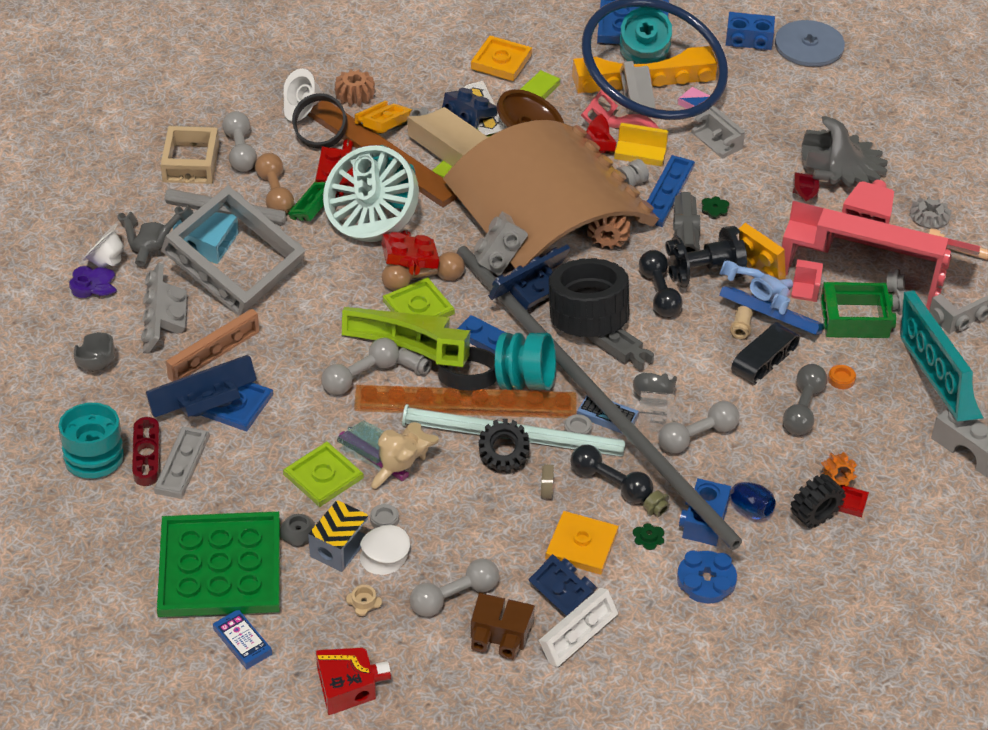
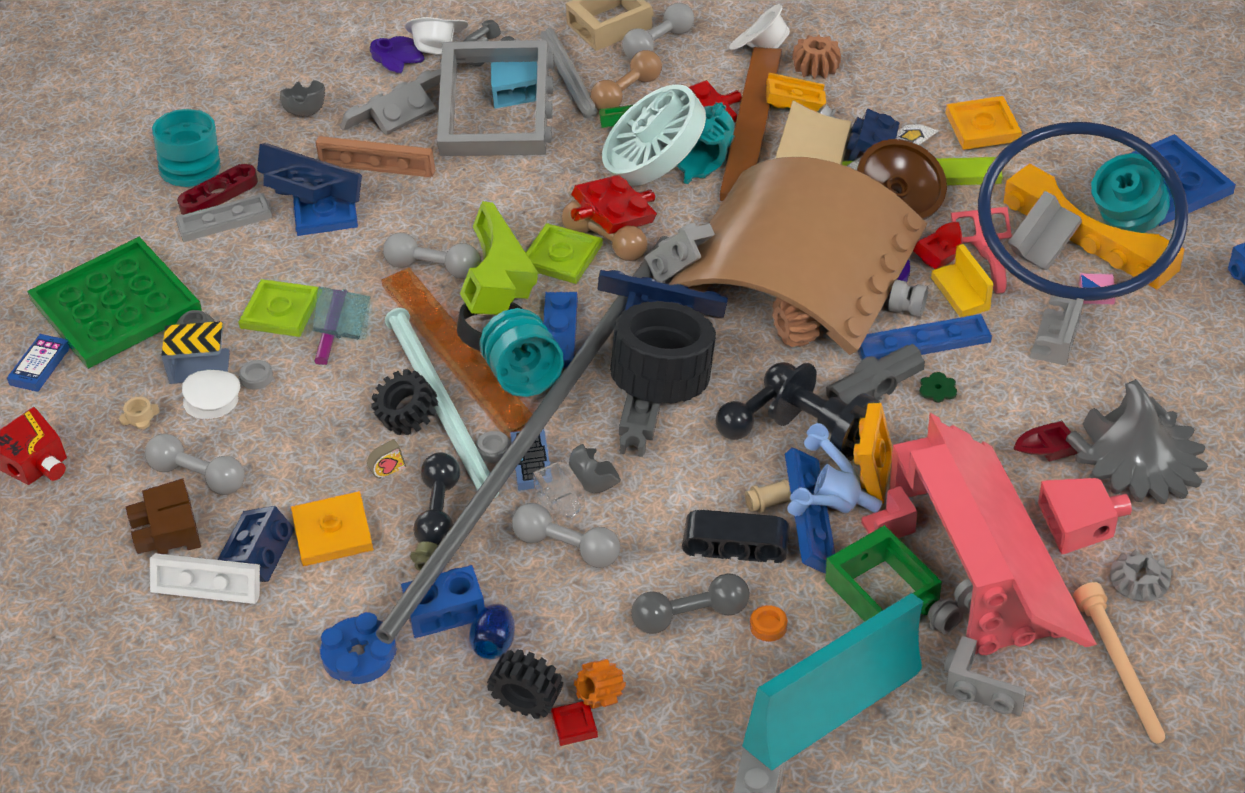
camera: 60 degrees right, 0 degrees up
(313, 98) = (722, 41): black tyre -> none
(400, 450) = (333, 335): tan animal -> none
(648, 541) = (385, 577): dark green plant -> none

